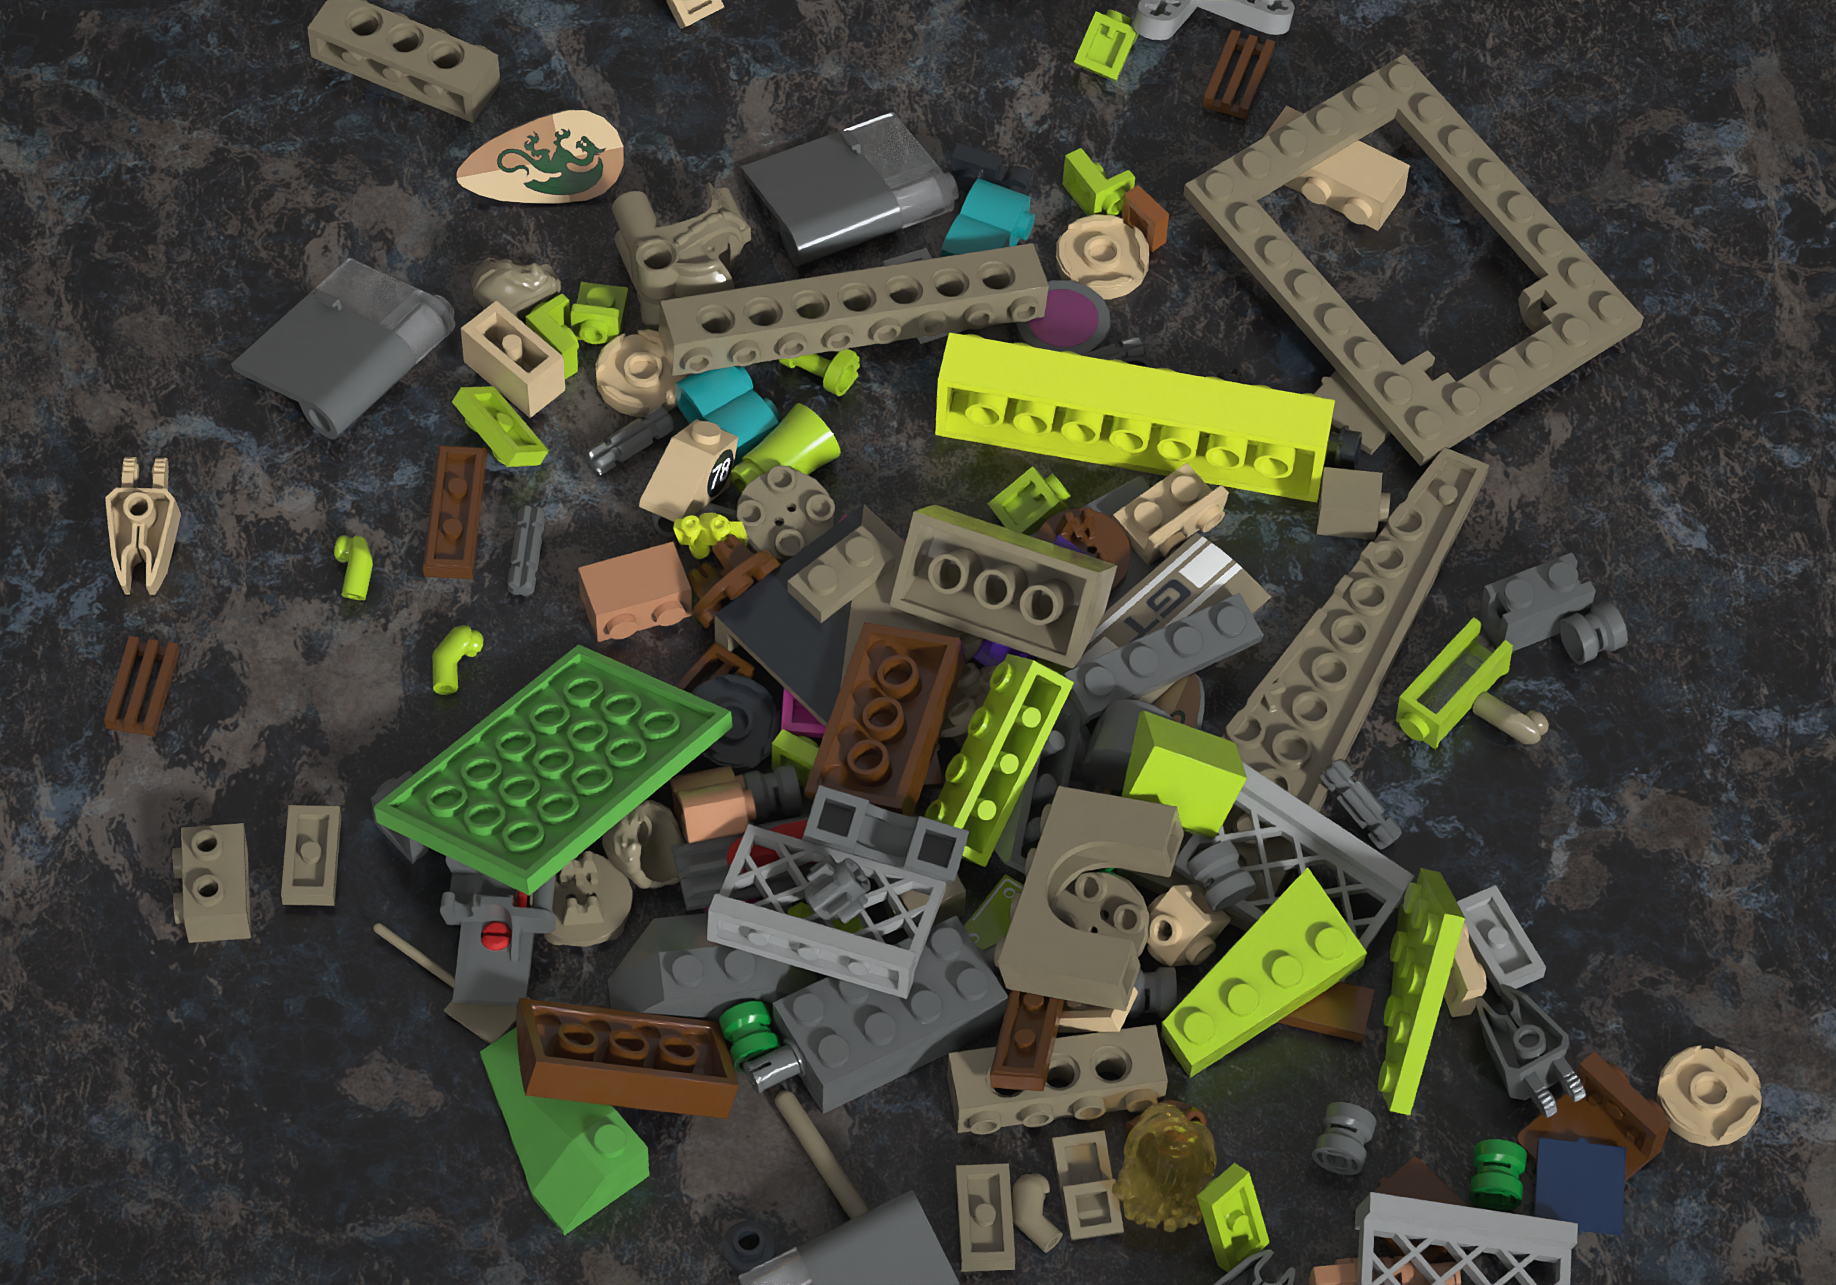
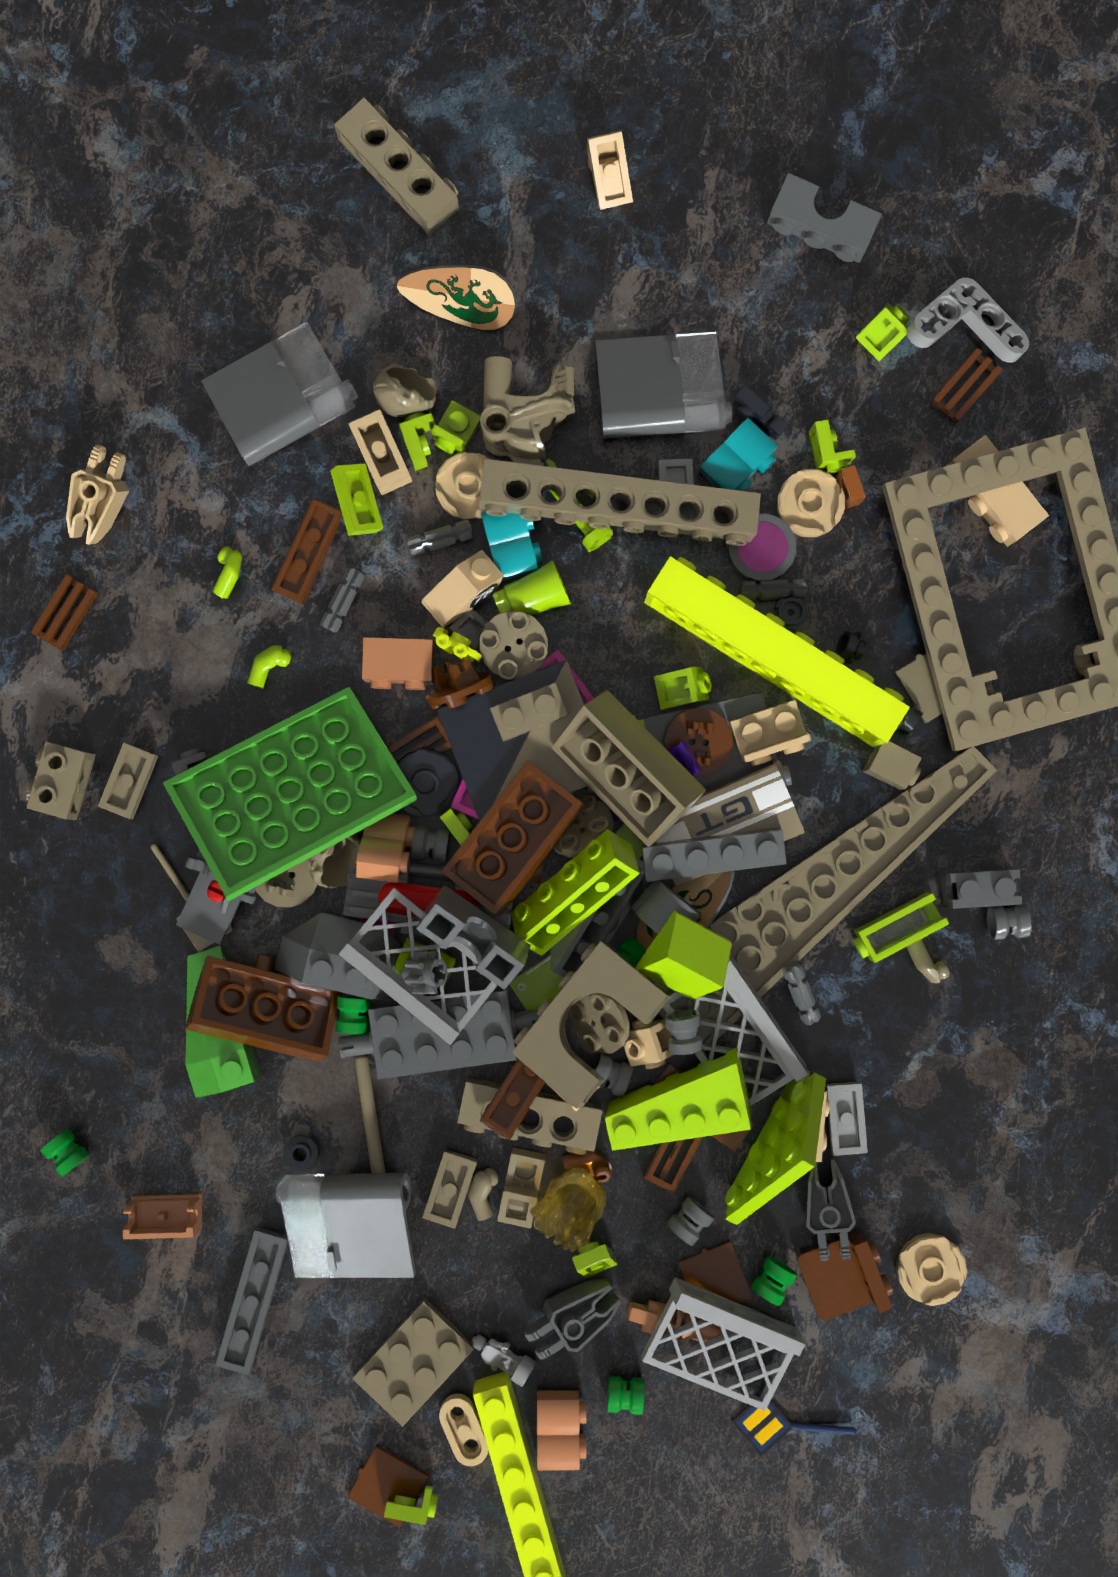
camera: 25 degrees right, 30 degrees up
(1279, 1109) = (660, 1180): none -> reddish brown tile
(1580, 1184) = (821, 1307): dark blue piece -> none

